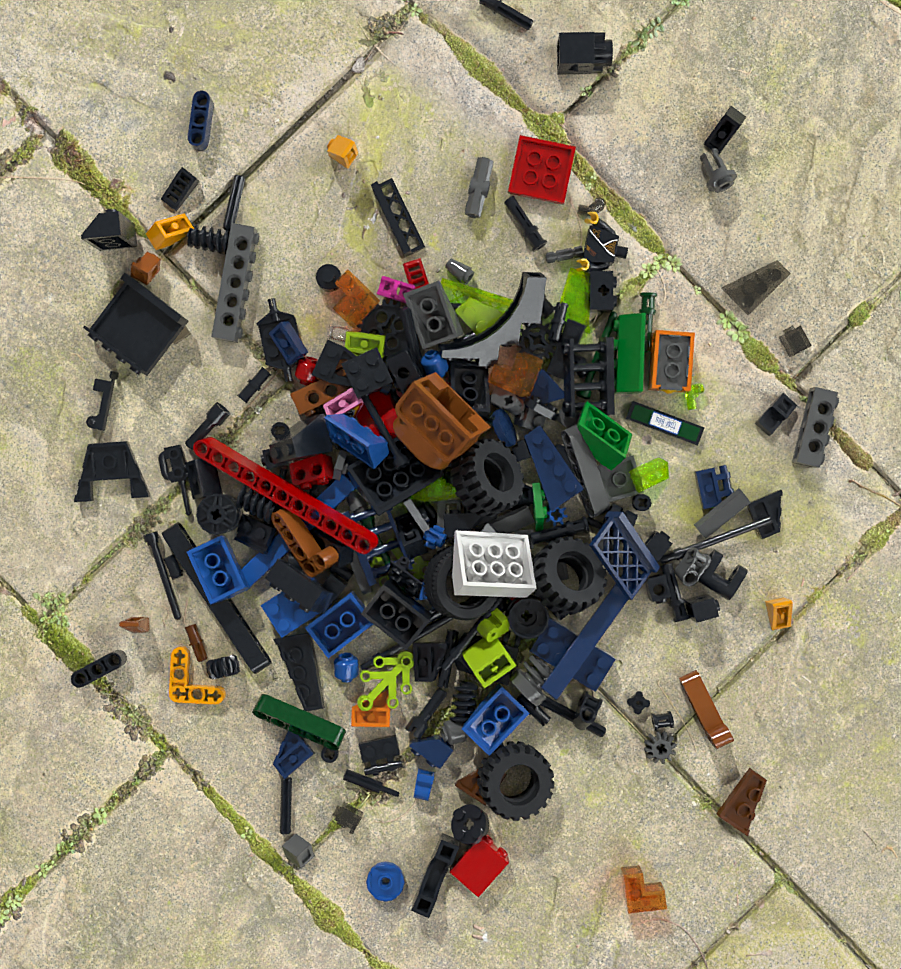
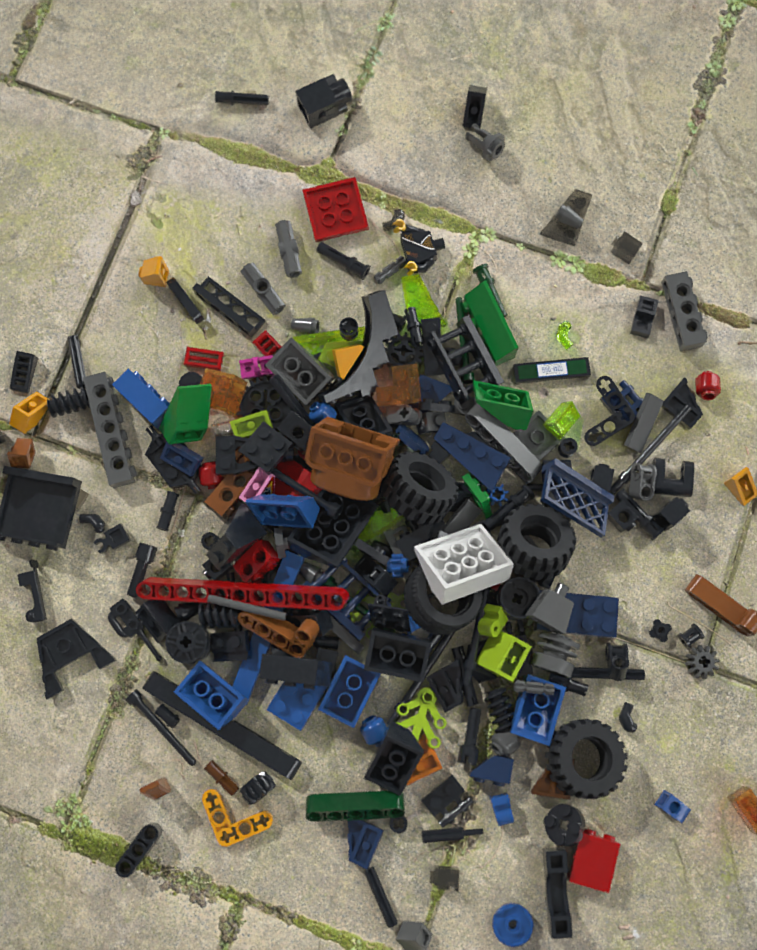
camera: 20 degrees left, 10 degrees down
(185, 361) = (95, 520): none -> black arm
(196, 387) = (115, 538): none -> black plate
(200, 111) = (12, 298): dark blue beam -> none
(230, 484) = (186, 610): none -> black cone
(278, 271) = (142, 397): none -> blue brick
(283, 511) = (246, 607): none -> dark grey bar
(302, 667) = (331, 749): black wing -> none
(310, 307) = (187, 414): none -> green slope
(350, 701) = (394, 759): none -> black slope
(359, 192) = (185, 300): none -> black beam
(364, 265) = (219, 361): none -> red tile
(435, 204) = (257, 280): none -> dark grey piece
(481, 322) = (345, 358): none -> light orange slope
(496, 293) = (348, 324): none -> black wheel
(500, 701) = (534, 687): none -> dark grey axle
(551, 642) = (552, 609): none -> dark grey torso
(568, 762) = (625, 718): none -> black arm
(569, 853) = (672, 806): none -> blue leg
(586, 640) = (583, 593): dark blue tile -> none
(603, 280) = (439, 274): black brick -> none
(671, 361) = (529, 313): dark grey piece -> none
(698, 497) = (615, 418): none -> black beam
(755, 284) = (568, 216): none -> dark grey cone
(799, 507) = (708, 385): none -> red head

